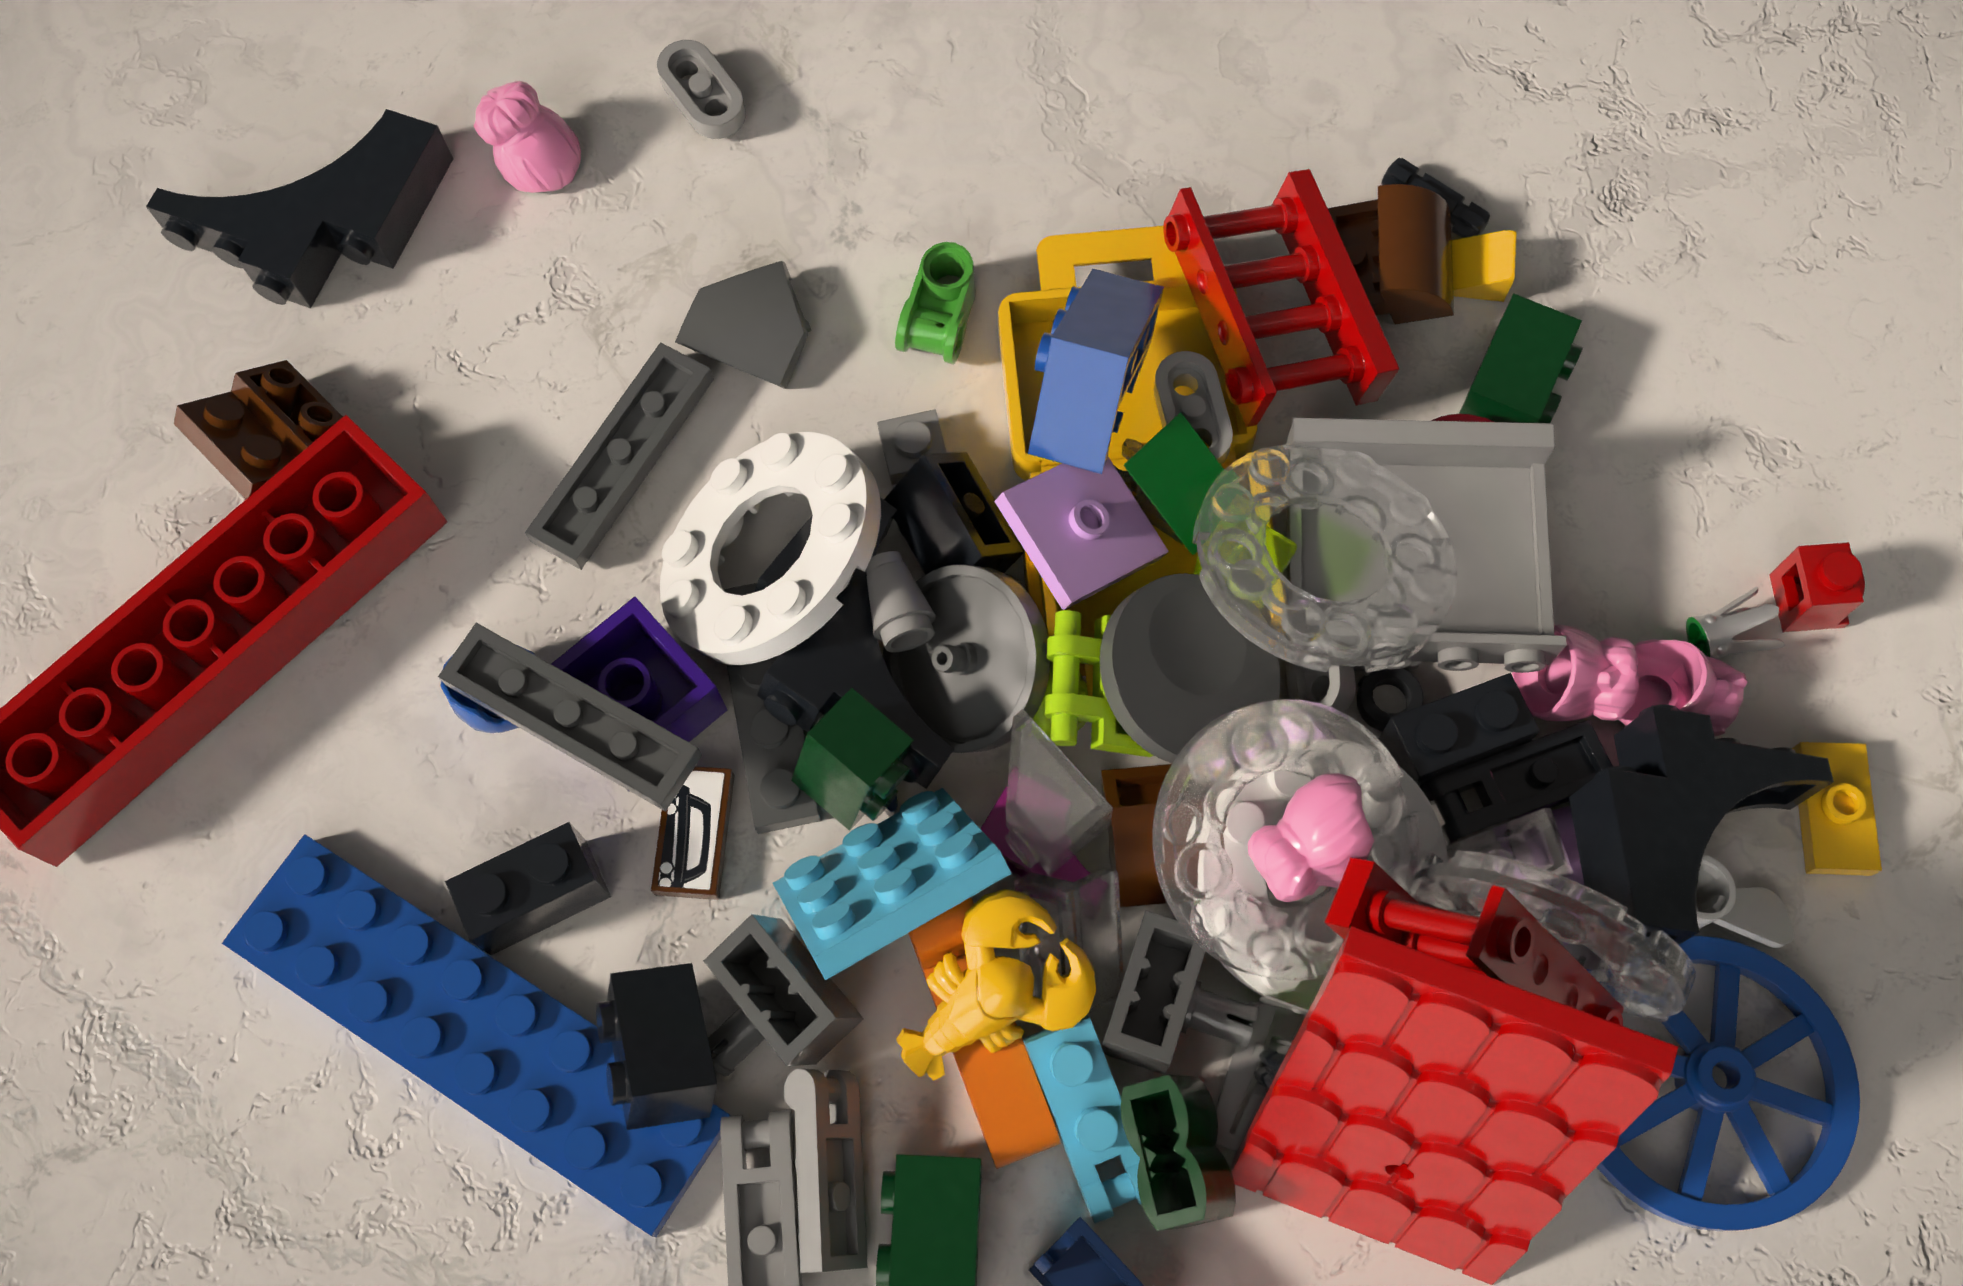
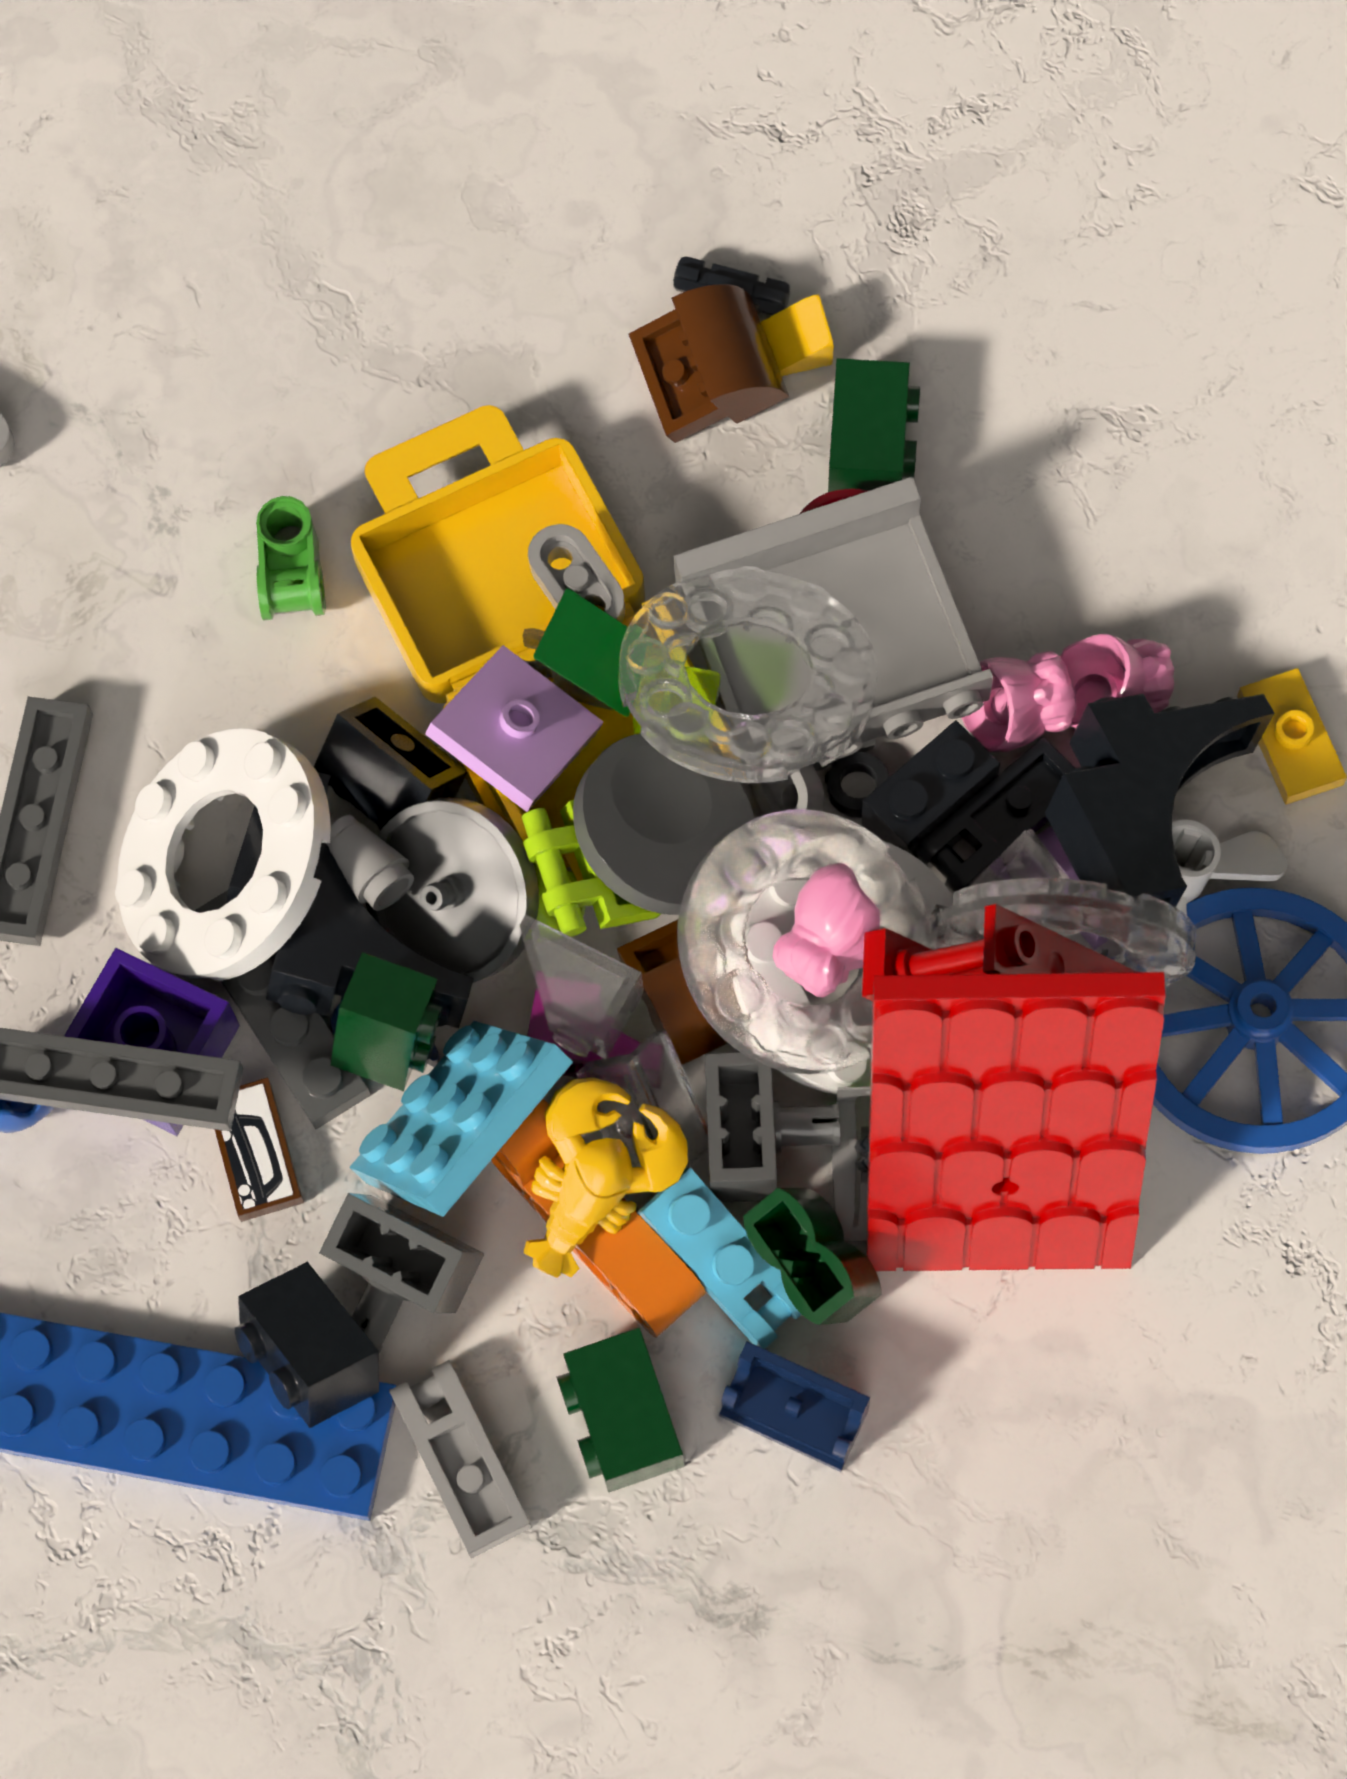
camera: 20 degrees left, 0 degrees up
(527, 889) = (123, 1256): black brick -> none
(749, 323) = (107, 646): dark grey slope -> none
(828, 1169) = (506, 1394): light grey plate -> none
(907, 439) = (312, 707): light grey plate -> none
(1090, 366) = (467, 573): wedge -> none
(1317, 261) = (640, 393): red fence -> none
(1714, 631) = (1129, 614): flat silver piece -> none
(1830, 585) = (1209, 539): red brick -> none

